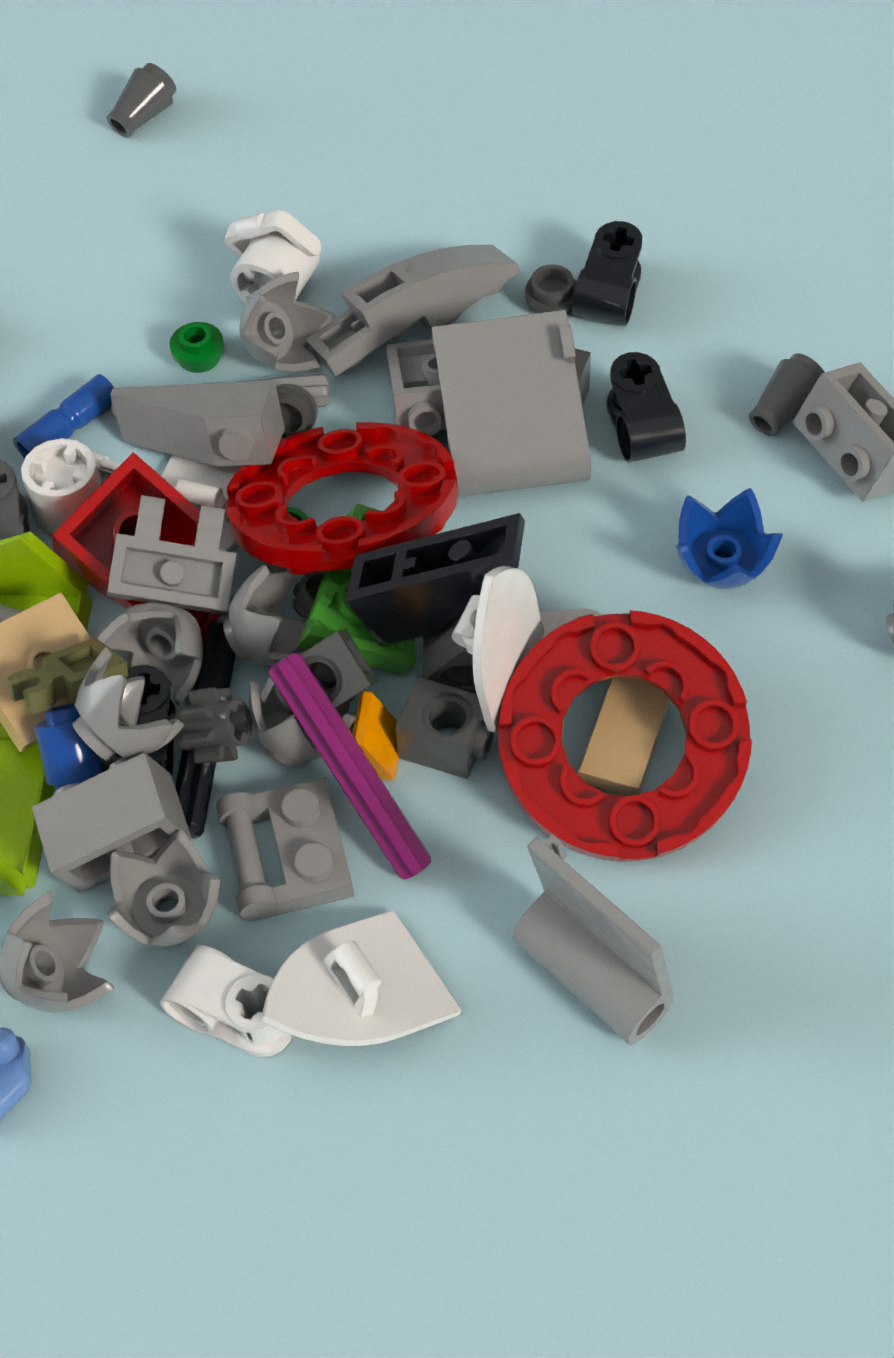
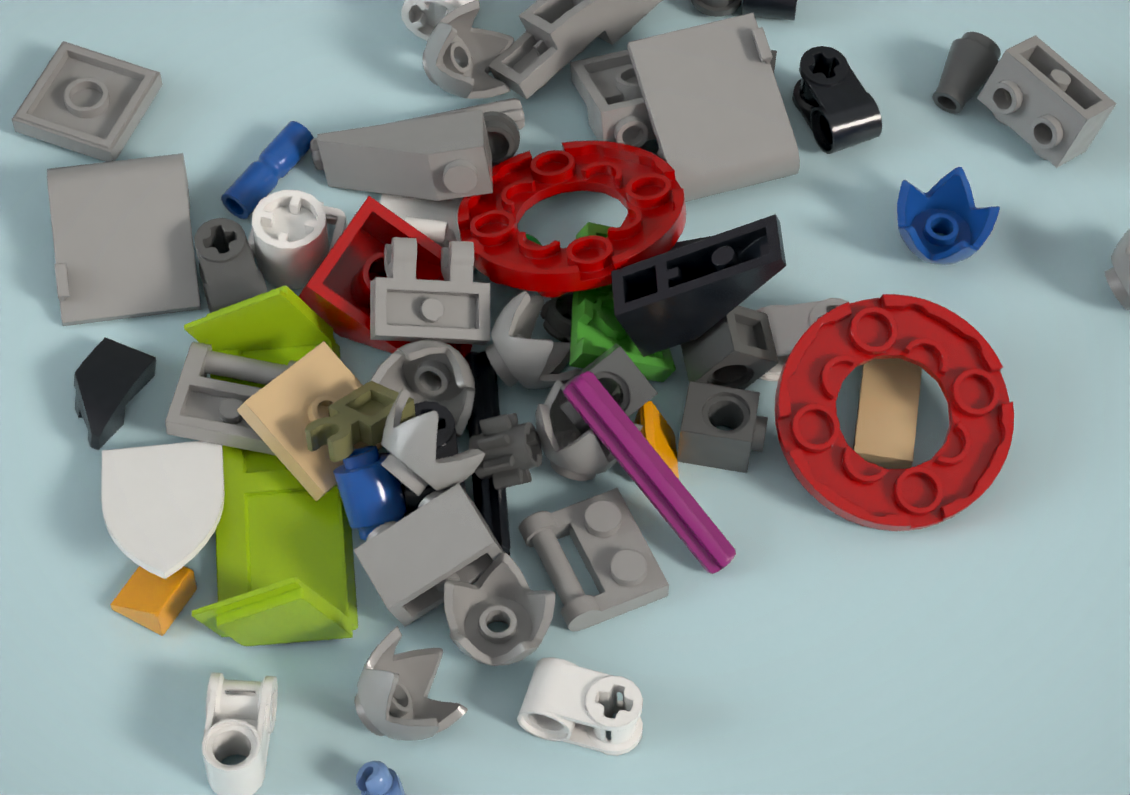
camera: 15 degrees left, 0 degrees up
(197, 346) = (380, 83): green plate -> none
(358, 986) = (701, 675): white shield -> none
(499, 632) = (779, 332): white shield -> none
(593, 947) = (917, 604): light grey door -> none

